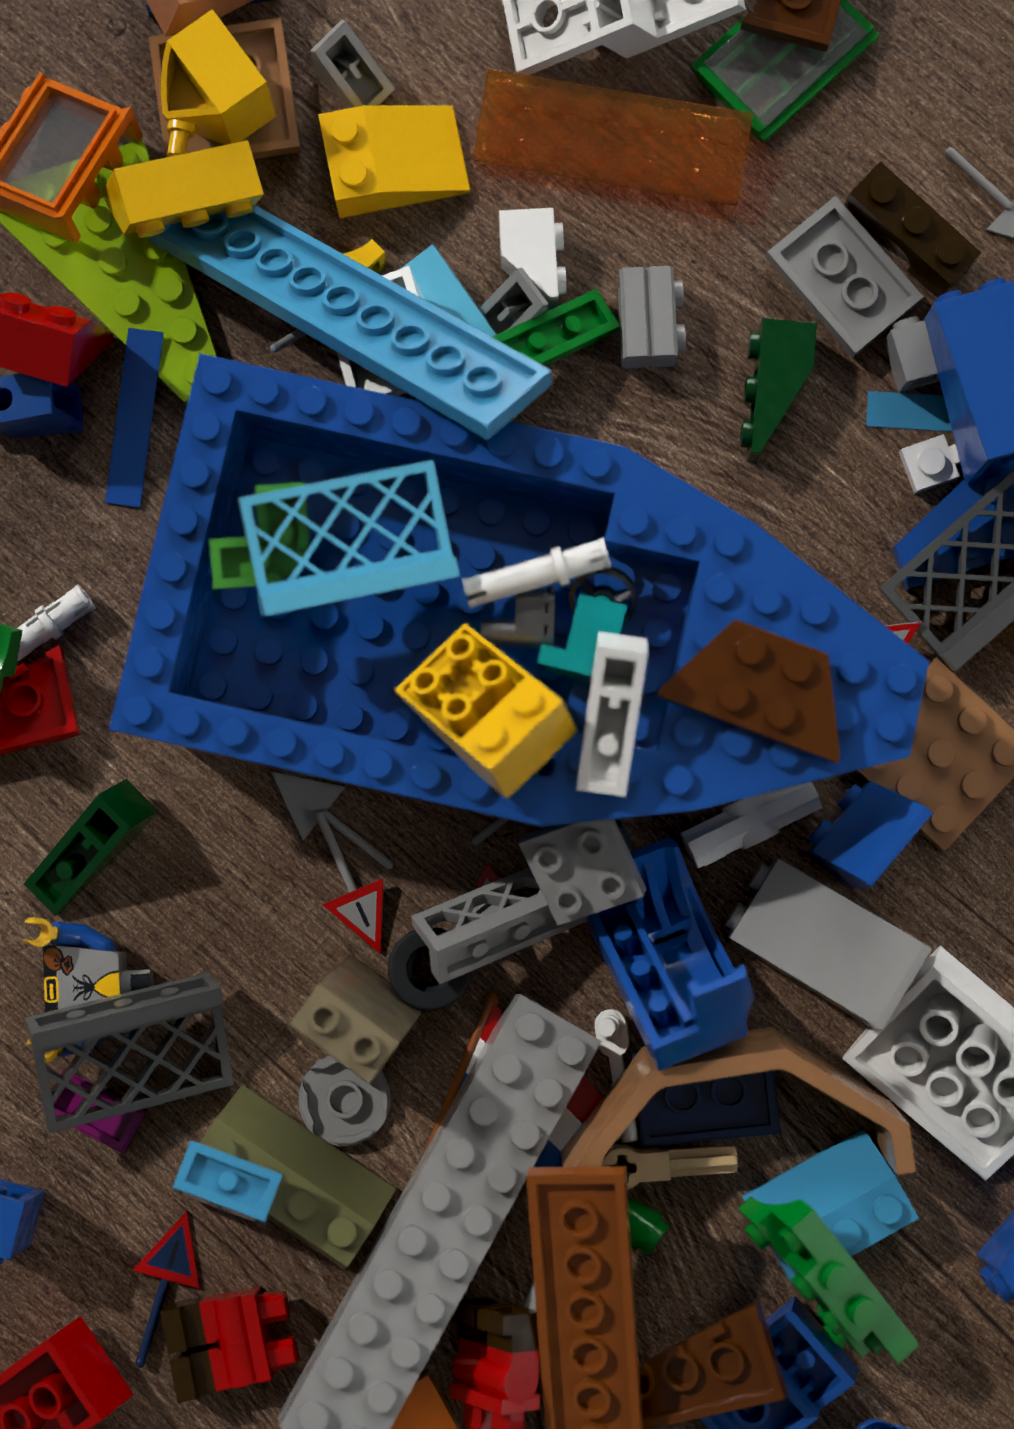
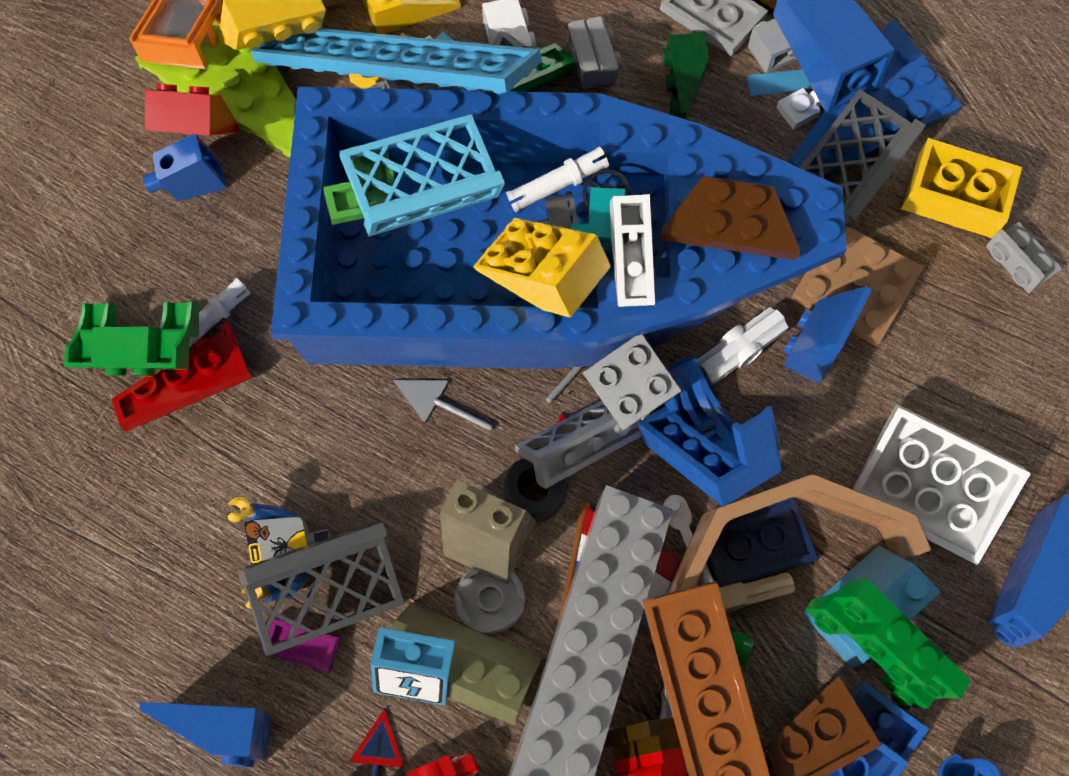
camera: 10 degrees left, 15 degrees down
(90, 845) = (270, 449): dark green slope -> none
(134, 417) = (260, 172): blue sticker -> none
(361, 907) = (475, 460): piece -> none
(826, 943) = (822, 414): light grey slope -> none

